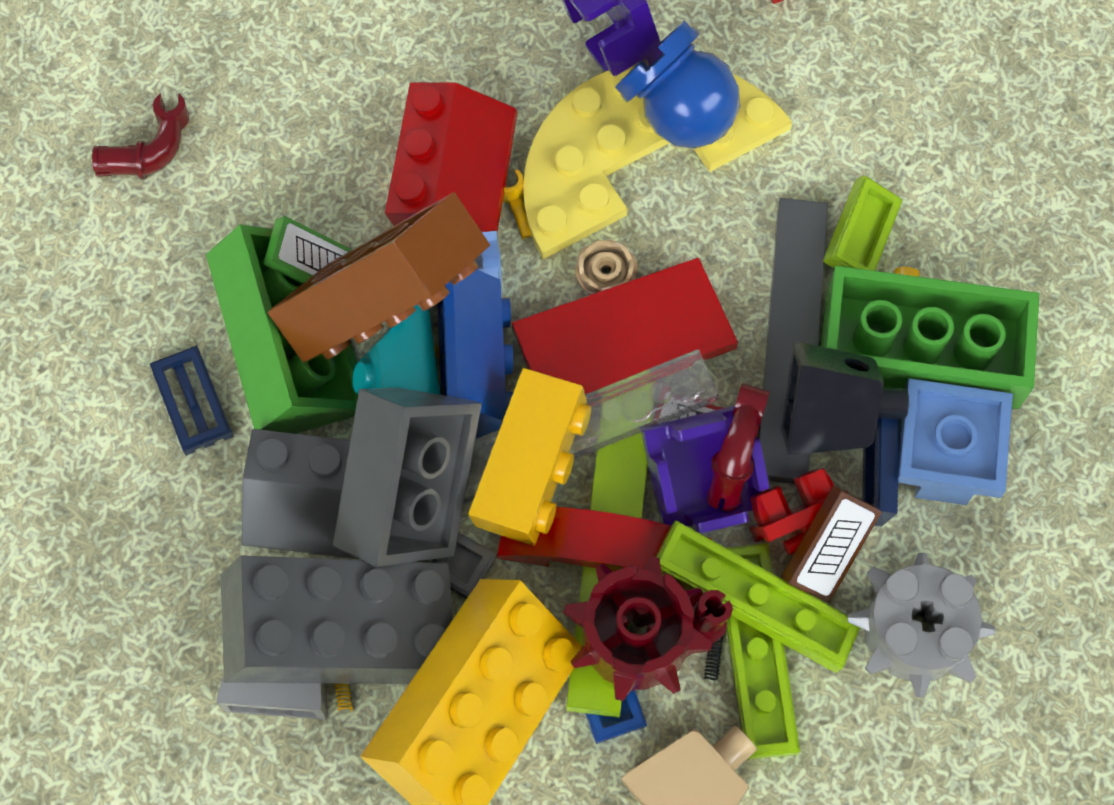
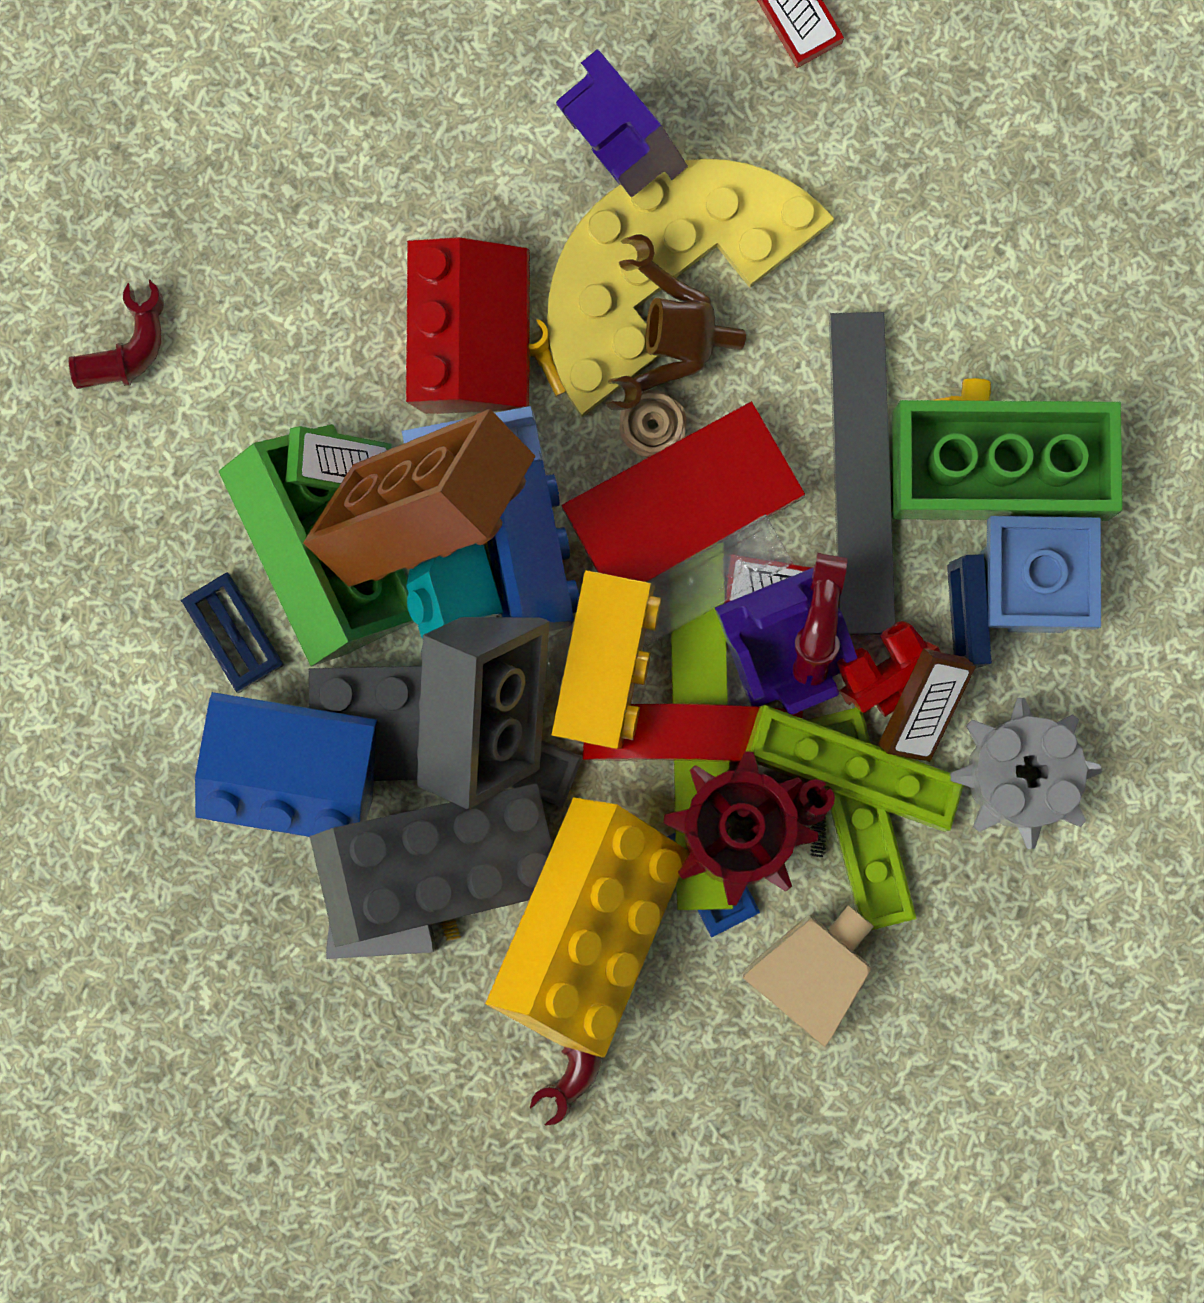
camera: 10 degrees left, 15 degrees up
(208, 509) = (283, 766): none -> blue slope
(639, 187) = (673, 328): none -> reddish brown piece
(685, 91) = (715, 215): blue tile -> none
(835, 400) = (916, 554): black torso -> none
(863, 226) = (925, 338): lime tile -> none

